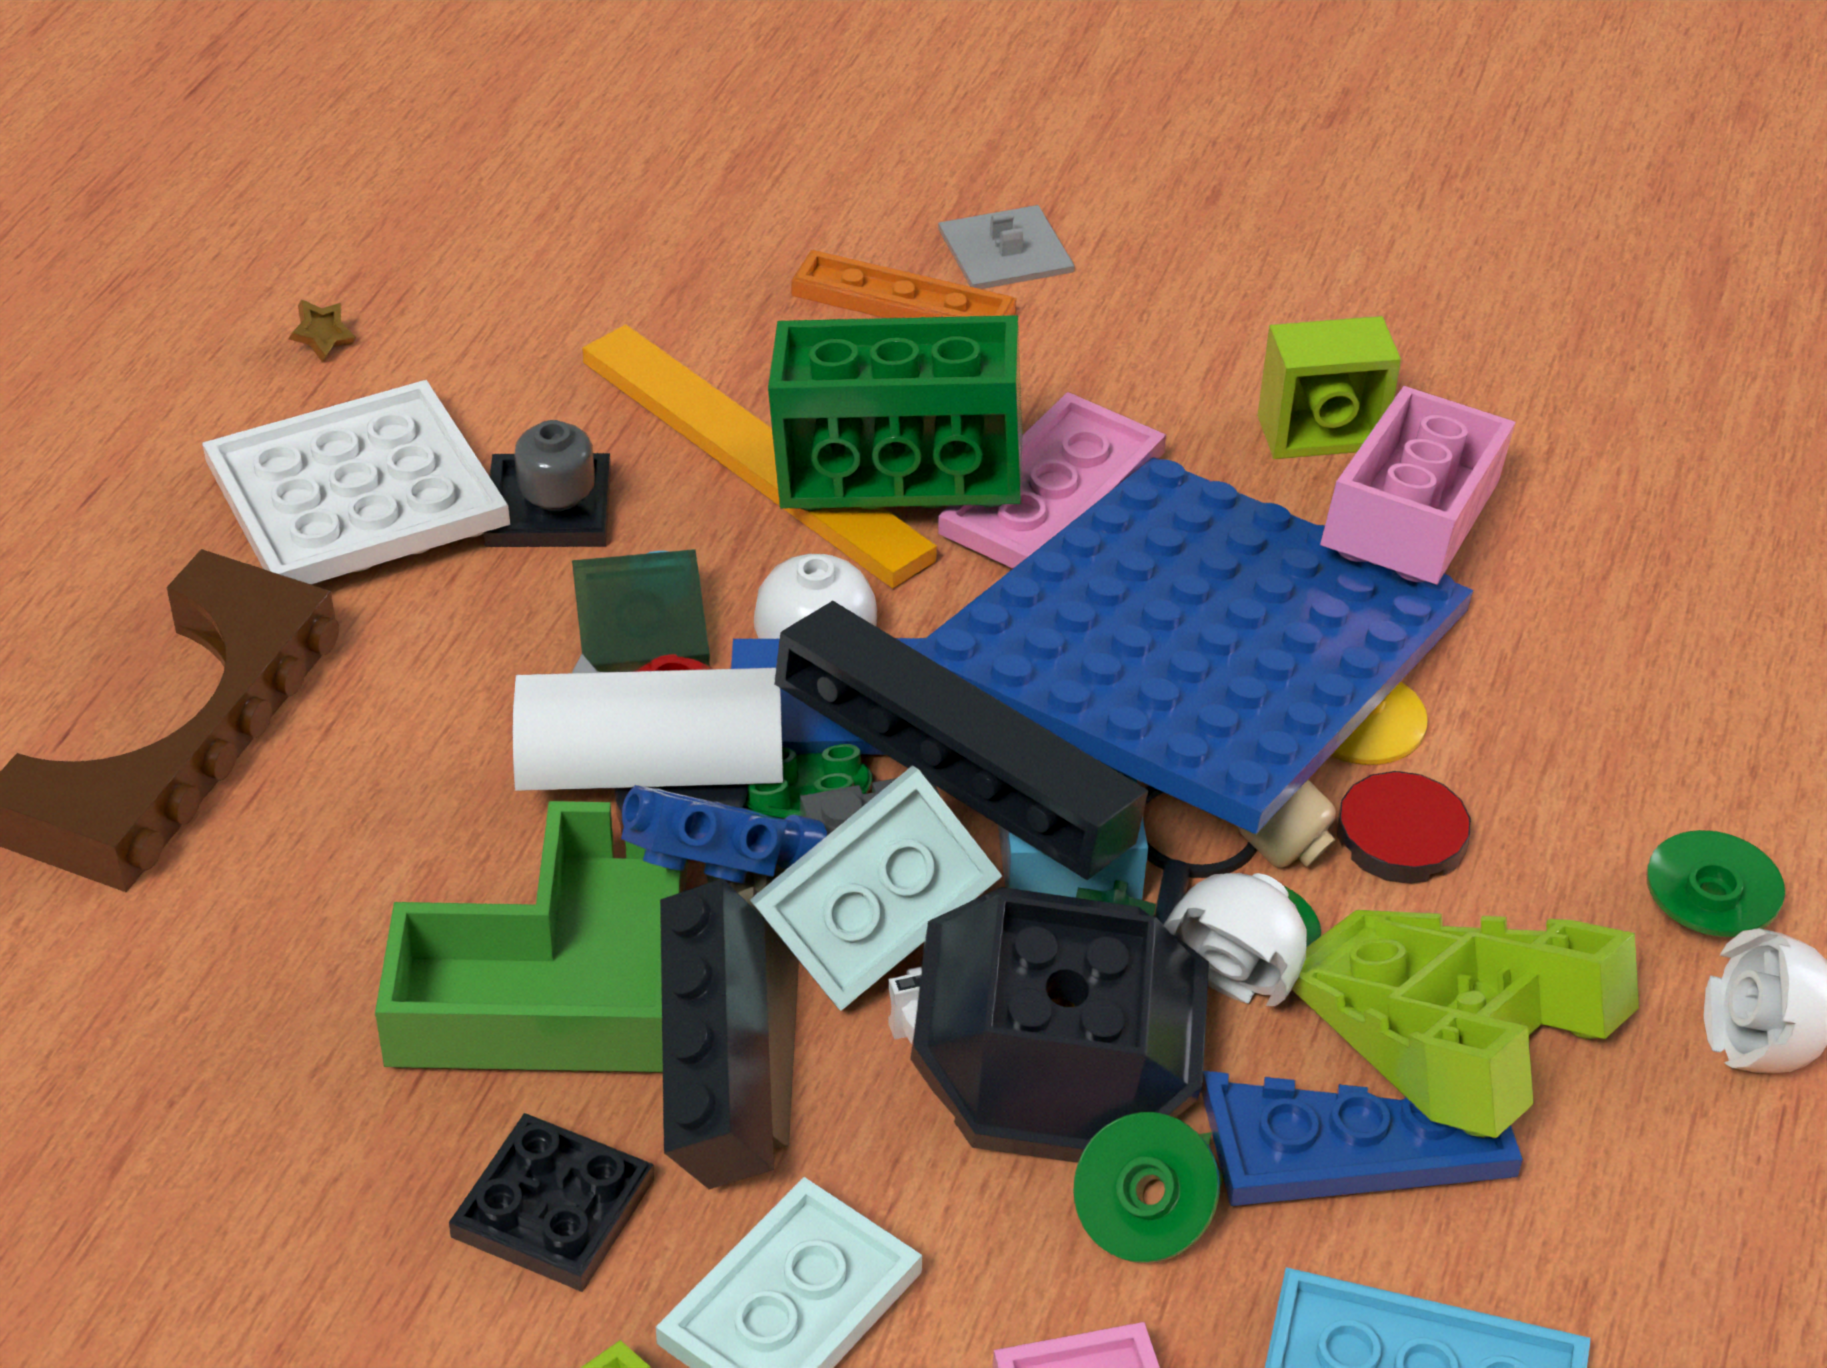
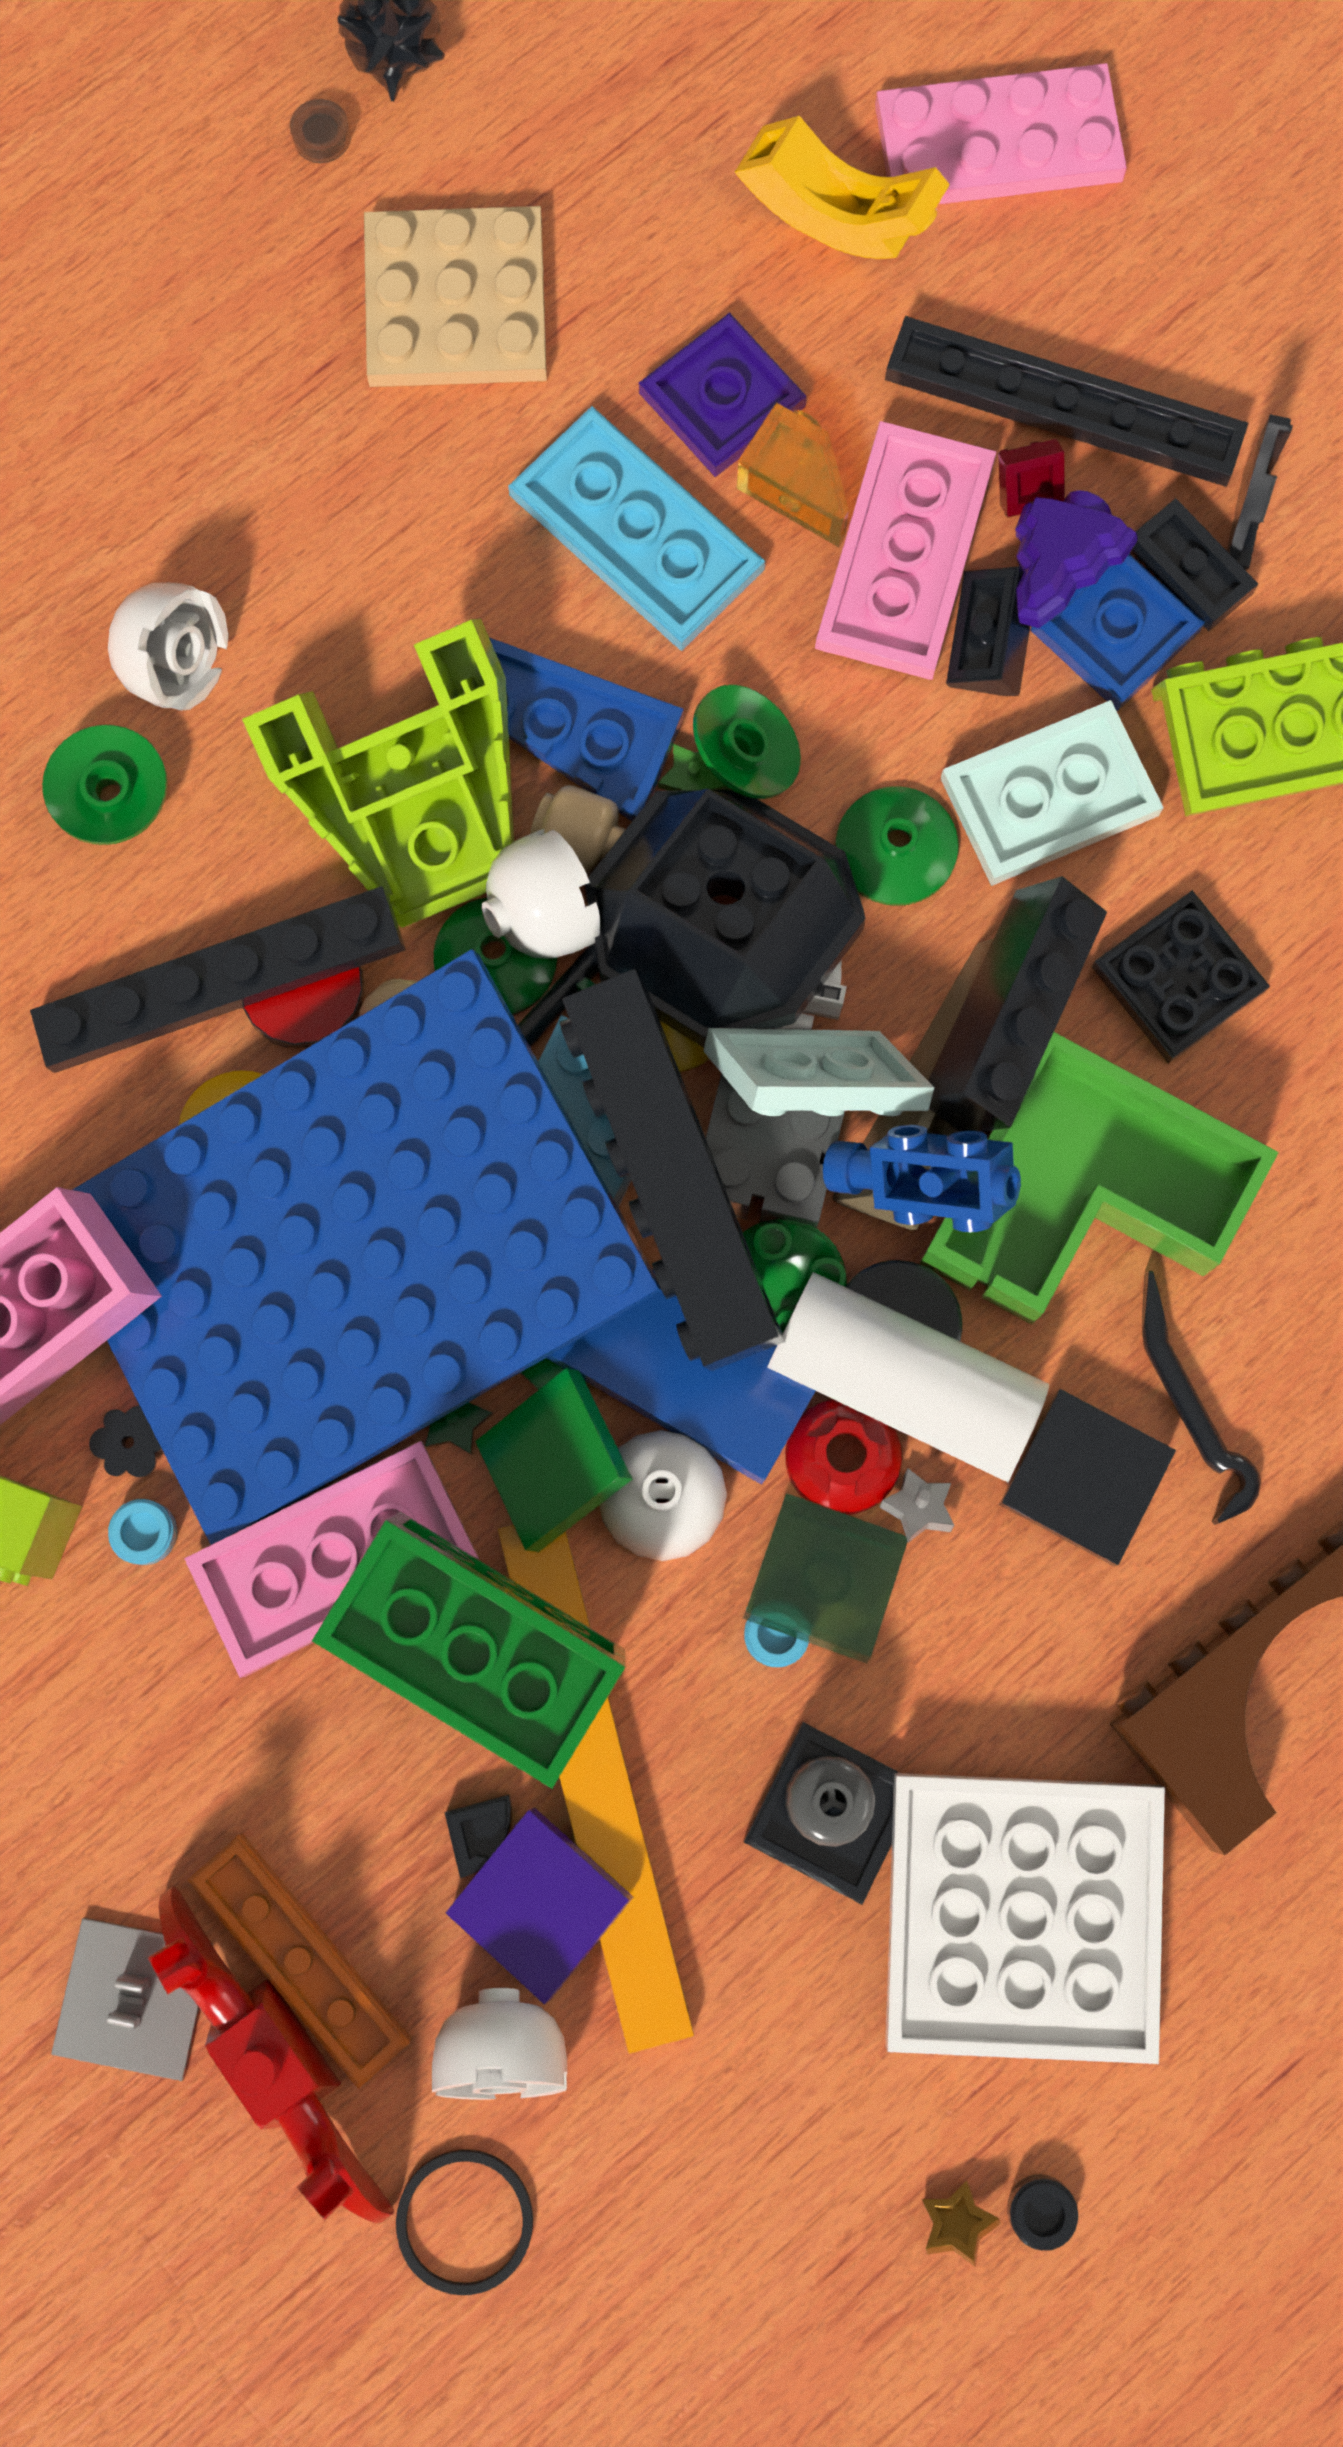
camera: 150 degrees left, 35 degrees up
(257, 361) = (1042, 2212): none -> black tile
(351, 846) = (1191, 1408): none -> black piece
(442, 760) = (1087, 1477): none -> black tile
(689, 260) = (409, 2255): none -> black piece
(719, 276) = (499, 2050): none -> white cylinder
(729, 364) = (539, 1905): none -> dark purple tile
(885, 215) = (267, 2063): none -> red torso
(914, 574) = (553, 1460): none -> green tile
(936, 1218) = (891, 872): none -> green dish
(1213, 454) = (142, 1532): none -> medium azure tile
(1256, 1036) = (583, 820): none -> tan head
(1273, 489) = (110, 1441): none -> black plant
(1471, 788) = (217, 979): none -> black plate

